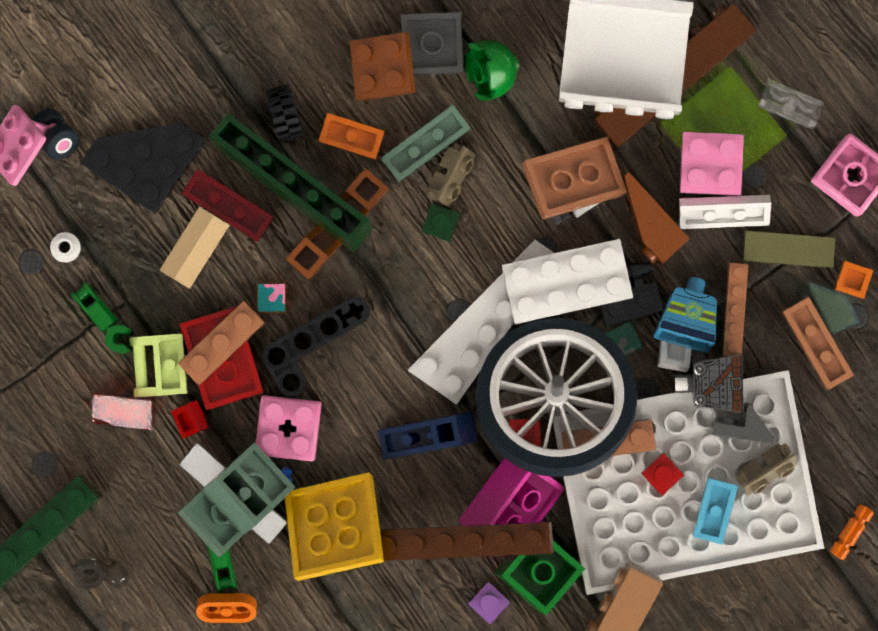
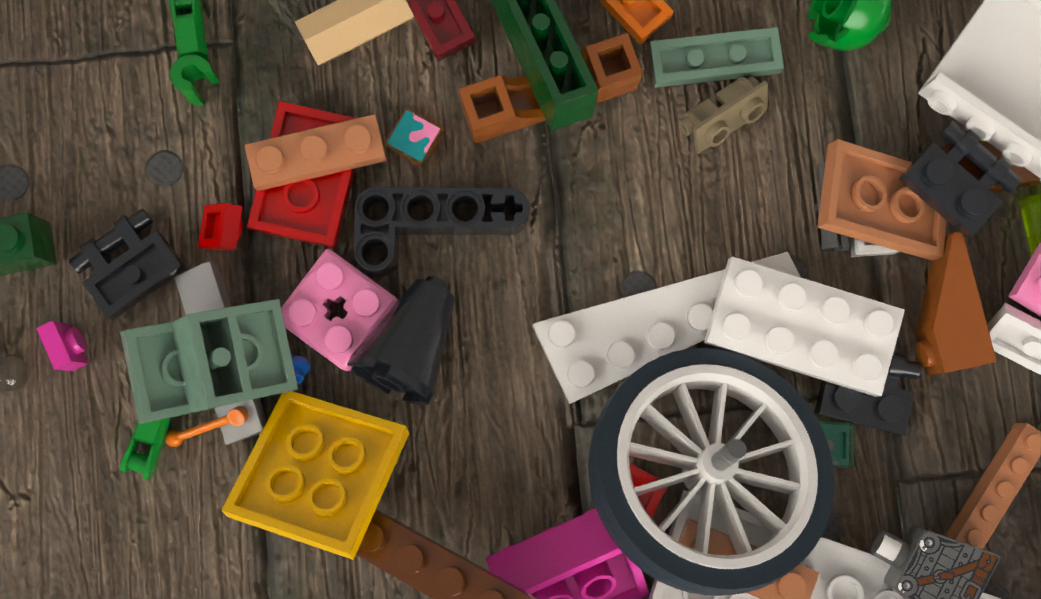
camera: 20 degrees right, 5 degrees down
(122, 411) = (144, 170): clear red slope -> none
(141, 539) = (63, 345): none -> dark pink plate
(154, 477) = (134, 273): none -> black plate
(169, 375) = (226, 159): yellowish green plate -> none
(226, 608) = (119, 496): orange plate -> none
(267, 523) = (235, 417): none -> orange hinge
(342, 423) = (408, 343): none -> black cone
(428, 435) = (511, 422): dark blue slope -> none
(440, 222) = (678, 165): dark green plate -> none
(608, 151) = (951, 188): none -> black plate
(673, 357) = (891, 500): white plate -> none
(689, 318) = (938, 466): dark azure torso -> none

